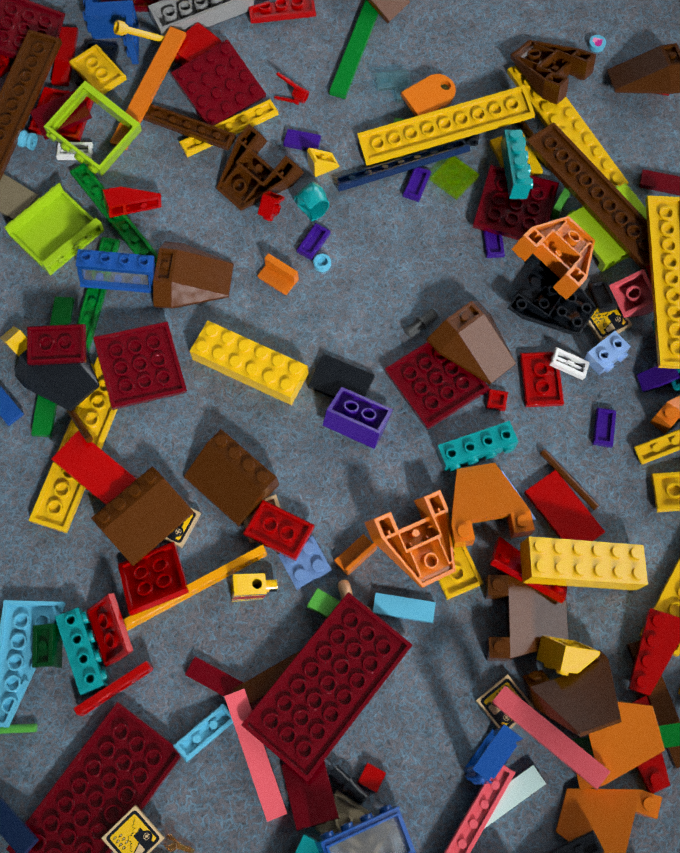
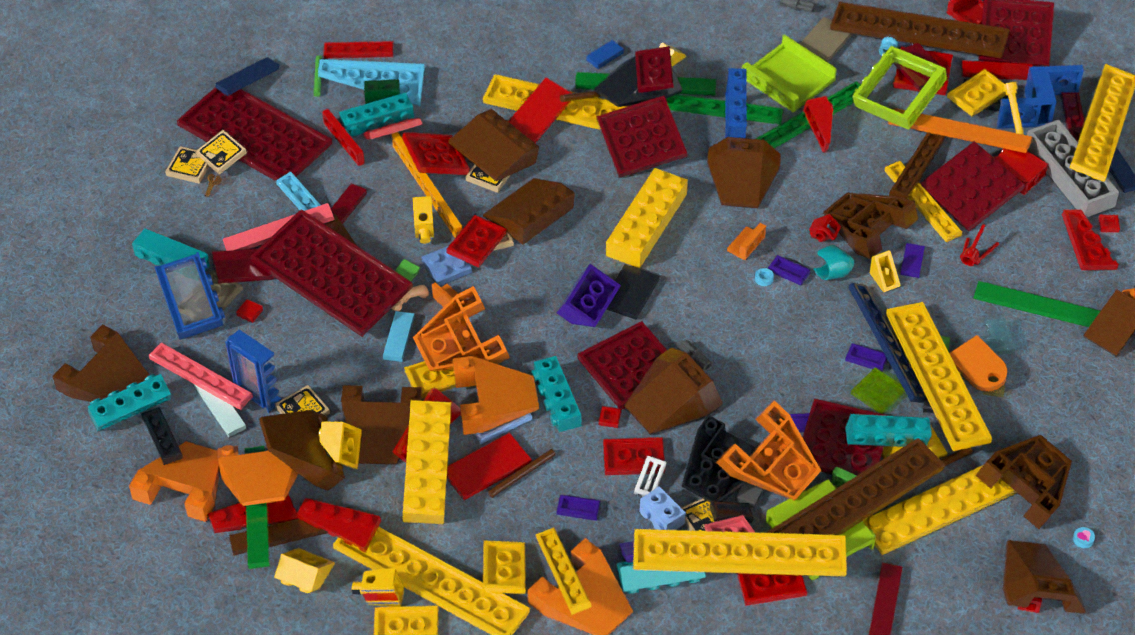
camera: 90 degrees right, 20 degrees down
(63, 155) = (883, 94): white tile -> none
(348, 784) = (245, 292): black pin -> none
(551, 737) = (253, 432): coral tile -> none

